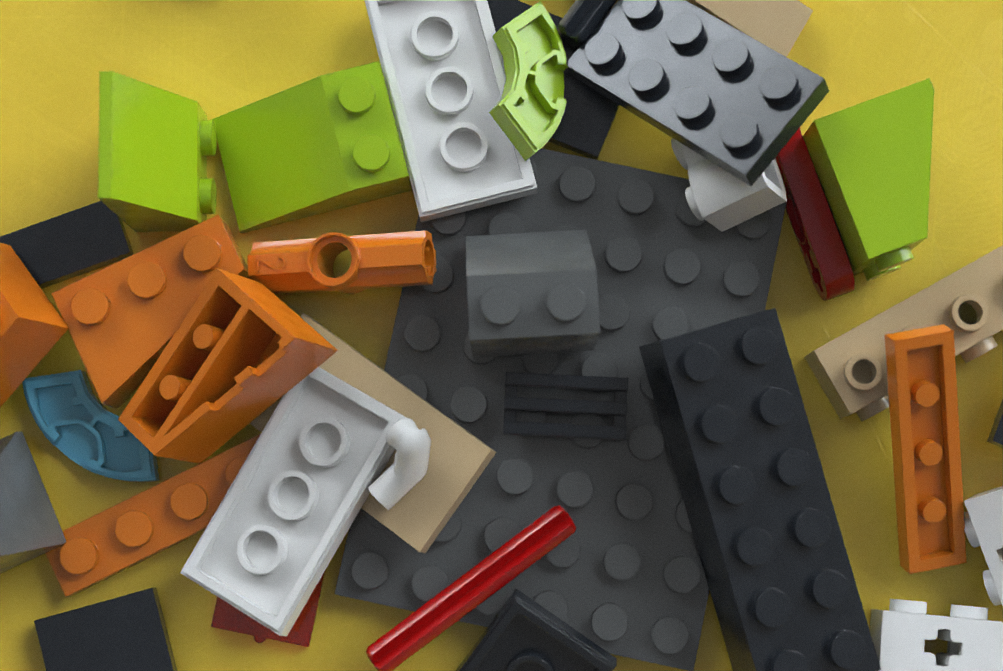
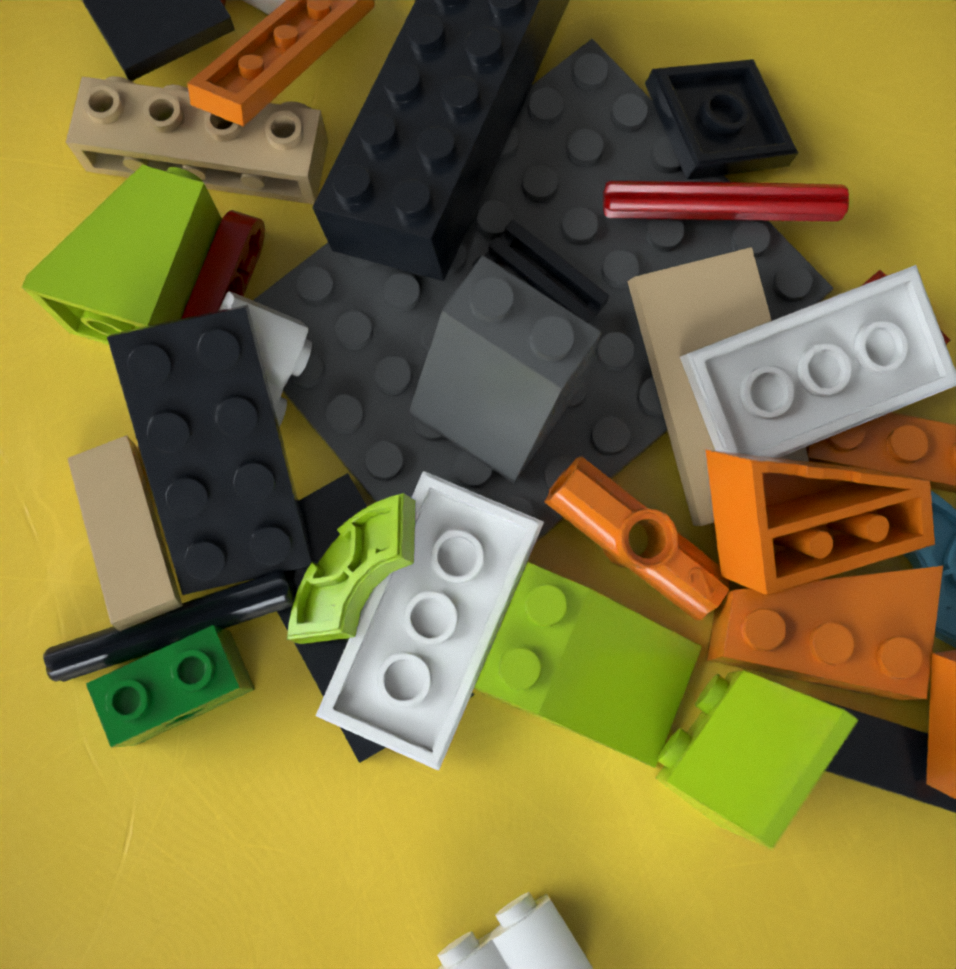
camera: 145 degrees left, 5 degrees down
(409, 462) = (706, 318): white arm -> none

